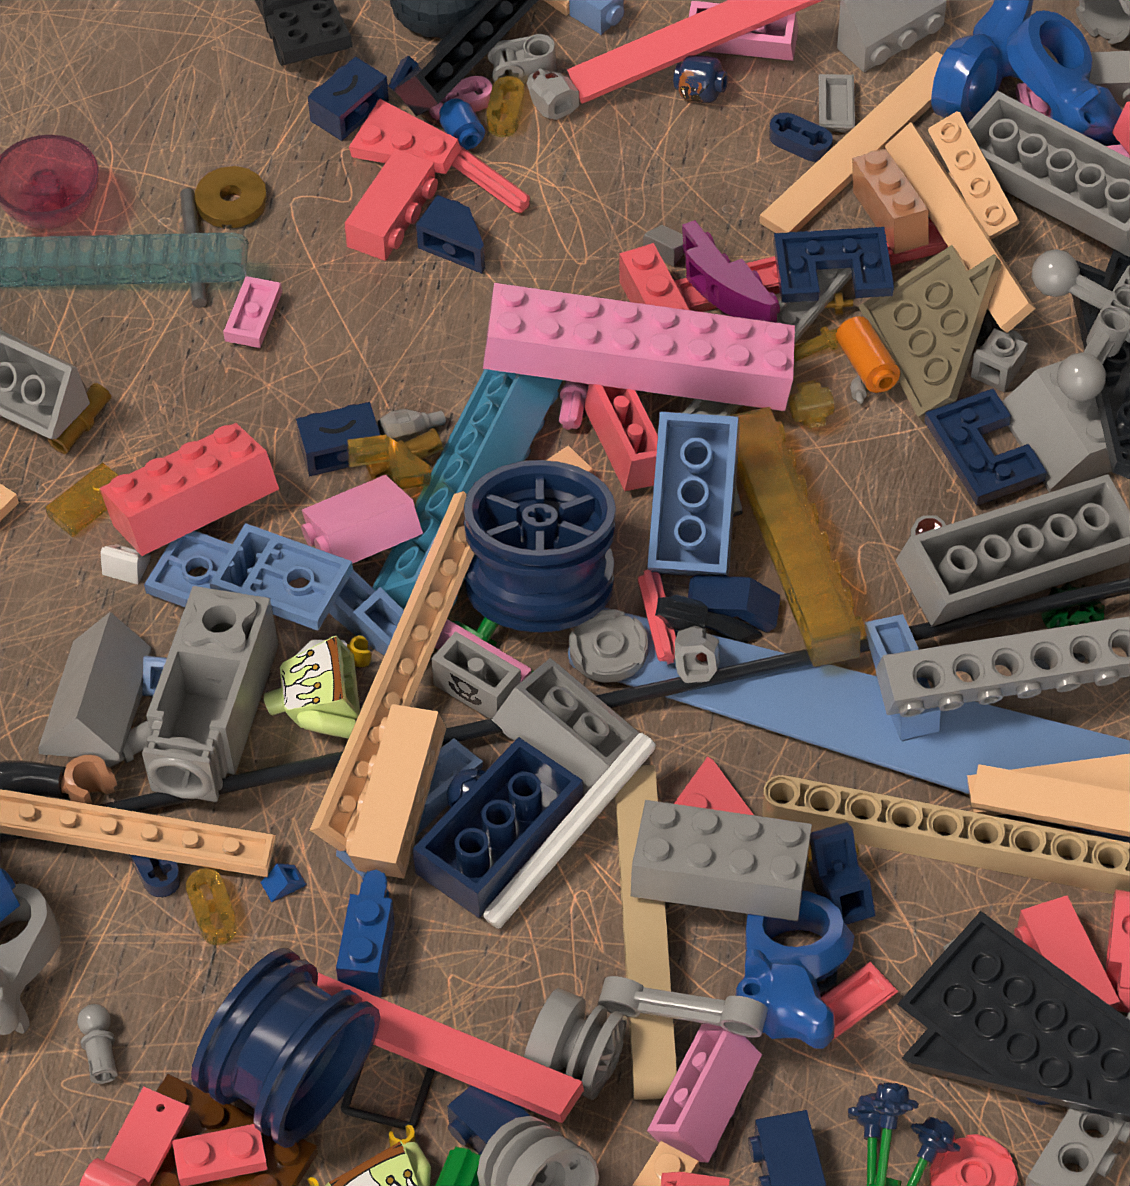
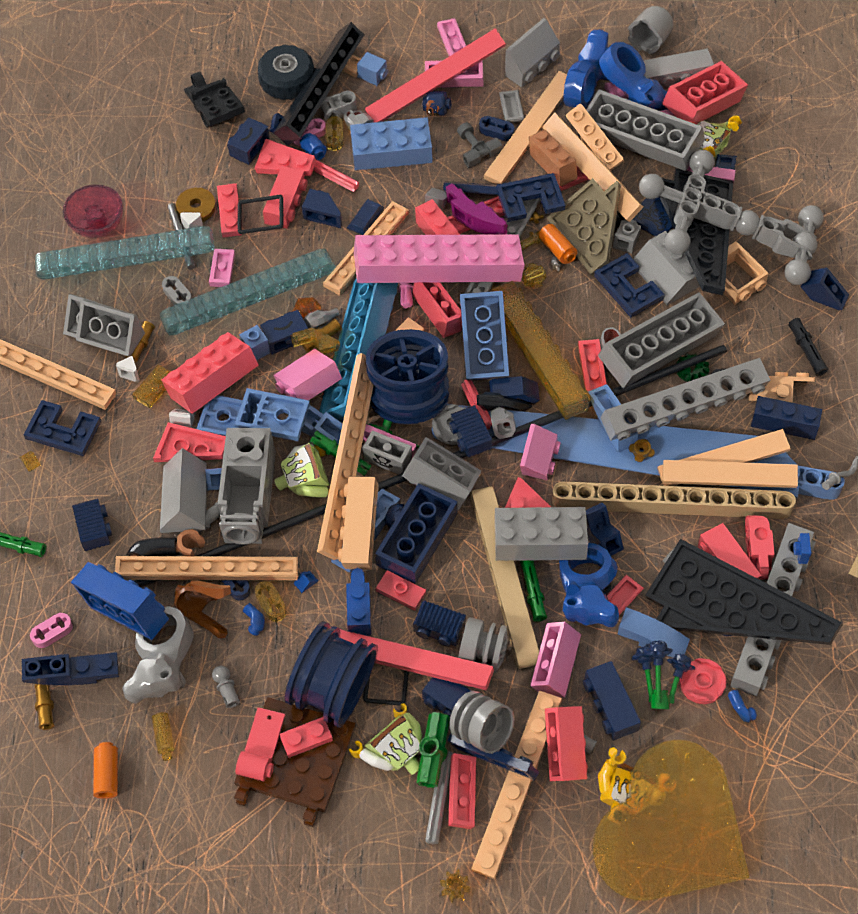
camera: 10 degrees left, 5 degrees up
(47, 463) = (127, 369): none -> white slope
(72, 879) = (194, 597): none -> dark orange piece
(140, 607) = (197, 442): none -> coral wing
(170, 341) = (173, 295): none -> light grey beam
(179, 936) = (257, 619): none -> blue arm
(216, 220) = (191, 220): none -> white slope
(283, 449) = (257, 341): none -> medium blue brick
(288, 214) = (228, 209): none -> coral plate
(288, 359) = (246, 291): none -> clear light blue beam
(339, 253) = (281, 214): none -> black piece
(374, 650) = (331, 448): none -> green pin
(389, 398) = (306, 306): none -> clear orange slope
(450, 925) = (401, 590): none -> coral plate
(503, 993) = (439, 624): none -> dark blue brick
(530, 259) = (365, 217): none -> dark blue tile
(566, 275) = (384, 225): none -> light nougat tile
(569, 830) = (454, 529): white axle -> none
(601, 137) = (391, 143): none -> medium blue brick
(634, 660) = (471, 431): none -> dark blue brick
(692, 919) = (535, 596): none -> green pin
(734, 234) = (473, 187): none -> dark blue tile
(735, 1014) = (566, 616): light grey piece -> none
(752, 717) = (539, 453): none -> bright pink slope
(761, 166) = (479, 148): none -> dark grey bar
(877, 1059) = (647, 629): none -> medium blue slope
(884, 578) = (591, 364): none -> coral plate
(943, 732) = (641, 444): none -> pearl gold plate
(1052, 329) = (653, 217): none -> dark blue tile

